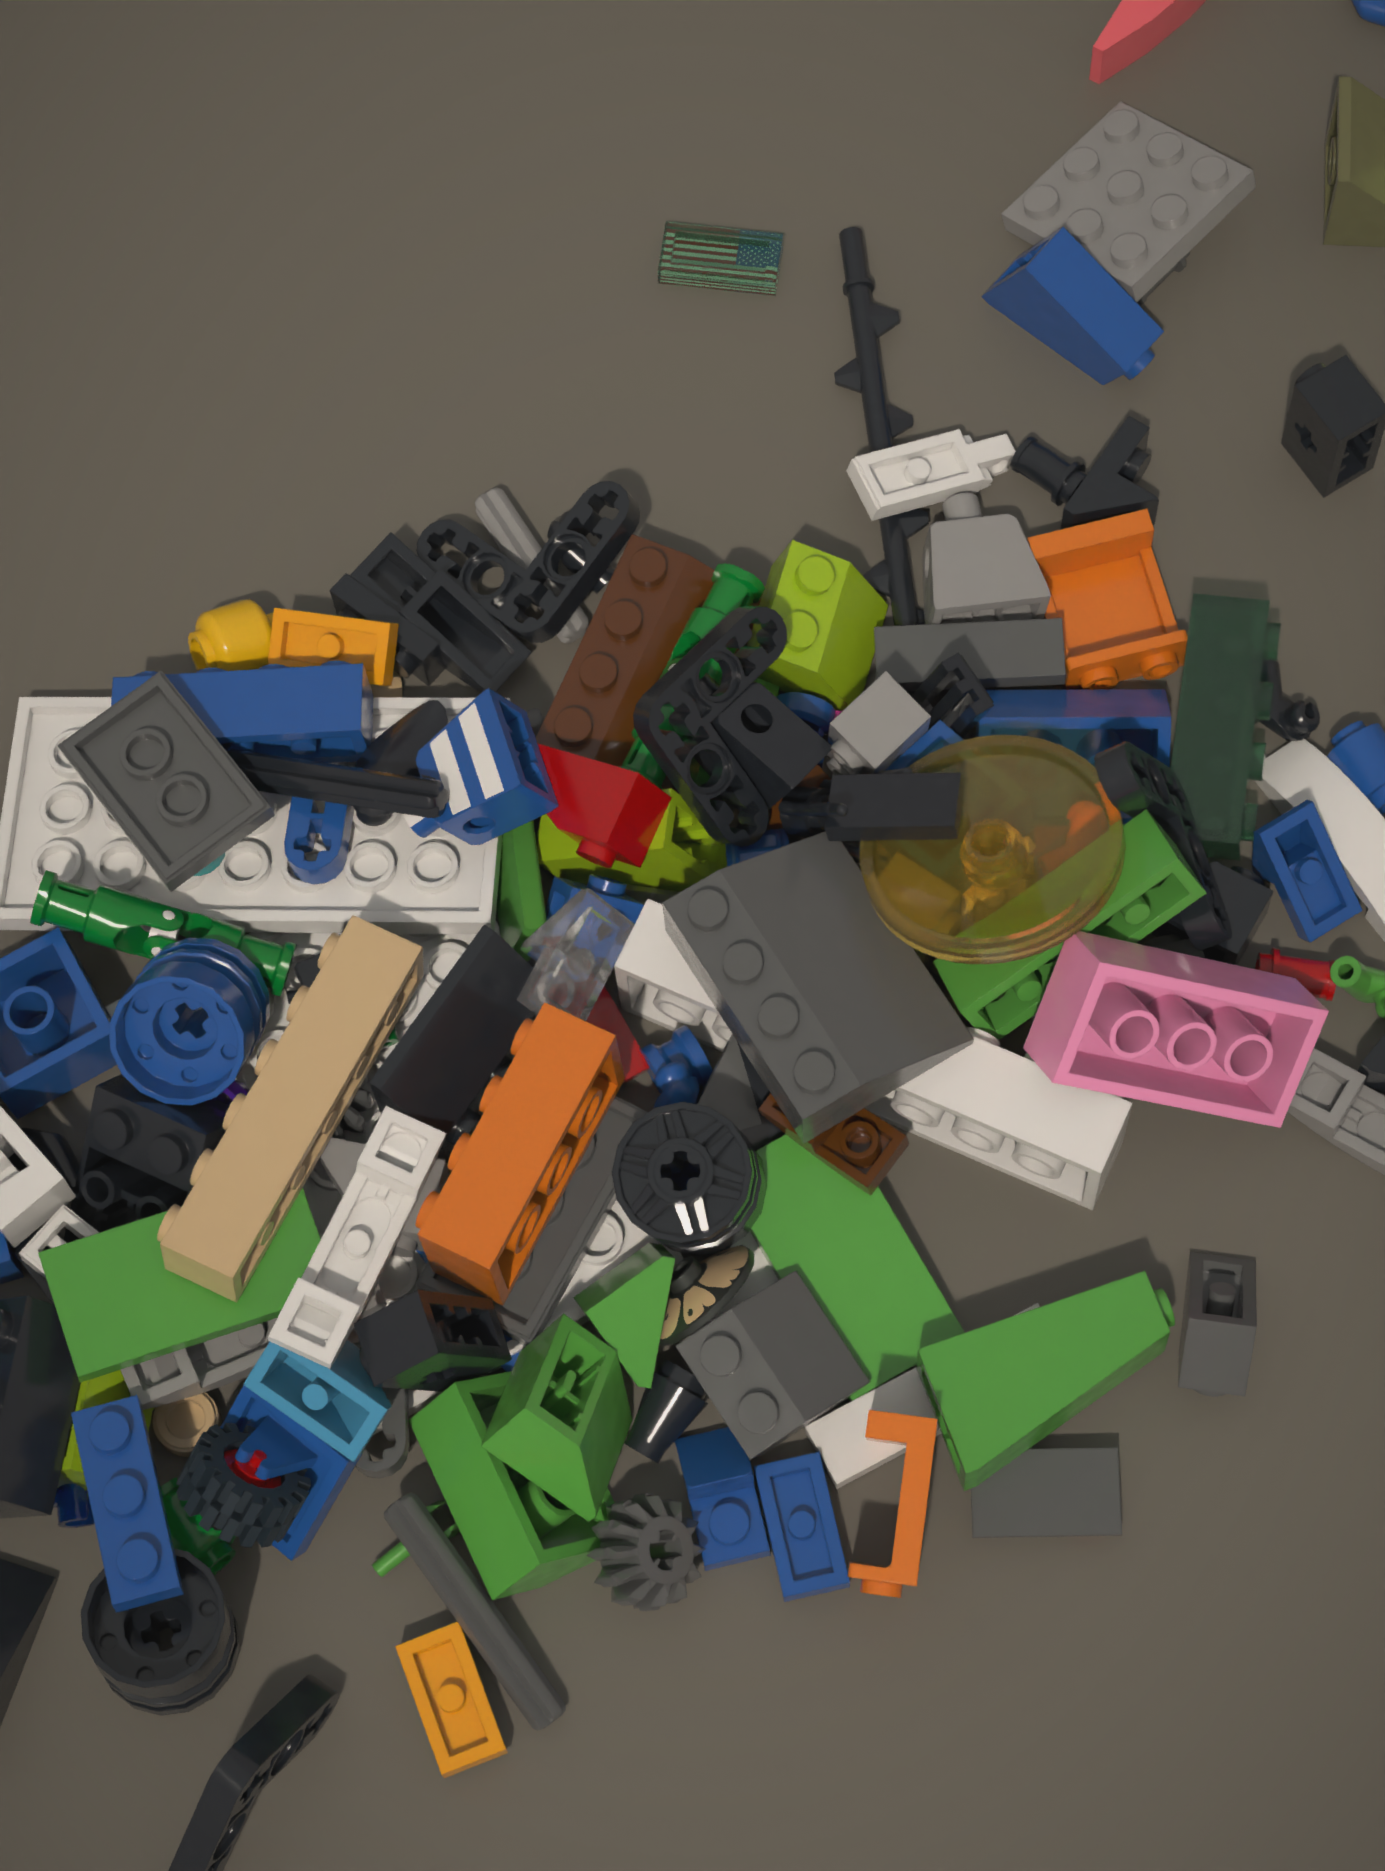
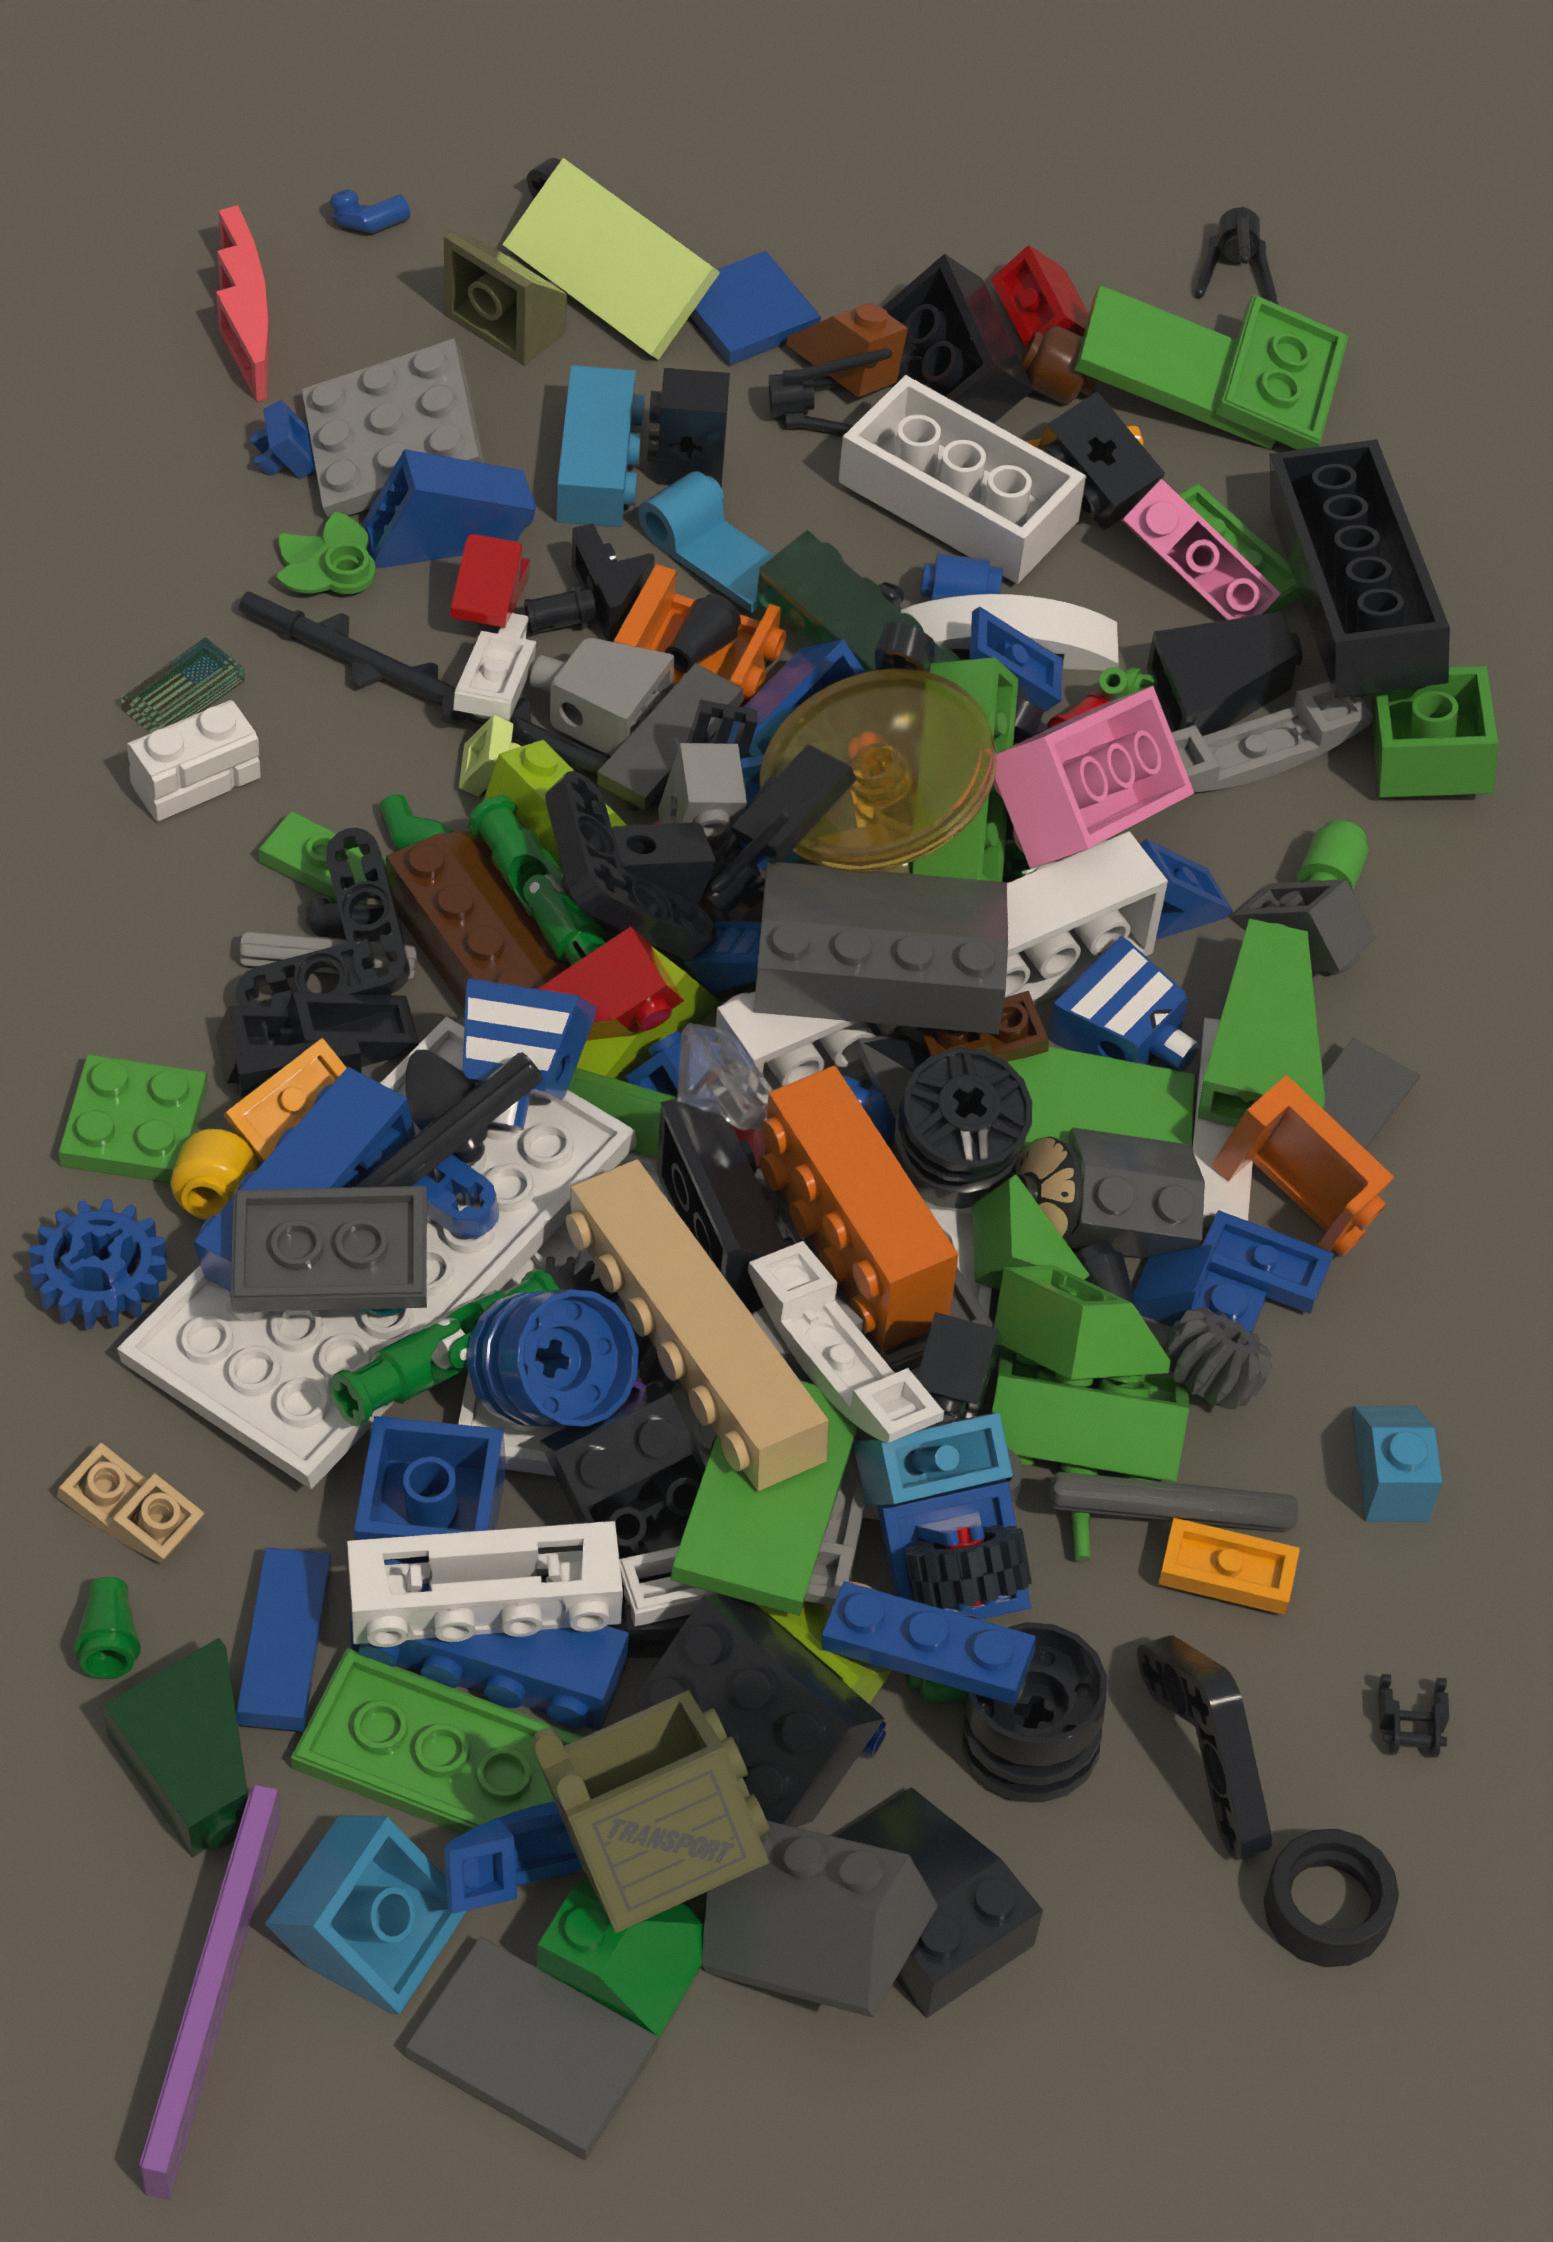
camera: 65 degrees left, 15 degrees down
(85, 618) = (98, 1263): none -> blue gear
(259, 543) = (132, 1117): none -> bright green plate
(632, 463) = (299, 852): none -> bright green plate
(635, 322) = (194, 760): none -> white brick
(674, 1770) = (1396, 1463): none -> dark azure slope
(708, 531) = (405, 827): none -> green arm
(838, 530) = (482, 753): none -> yellowish green tile
(952, 254) = (327, 562): none -> bright green plate
(980, 1232) = (1124, 1011): none -> blue torso
(1019, 397) = (489, 580): none -> red slope
(1046, 132) = (283, 442): none -> blue tile
(1111, 600) = (704, 631): none -> black cone
(1163, 1185) = (1190, 894): none -> blue slope
(1241, 524) = (691, 528): none -> dark azure door
(1255, 367) = (599, 446): none -> dark azure brick
(1314, 1302) = (1335, 854): none -> bright green brick

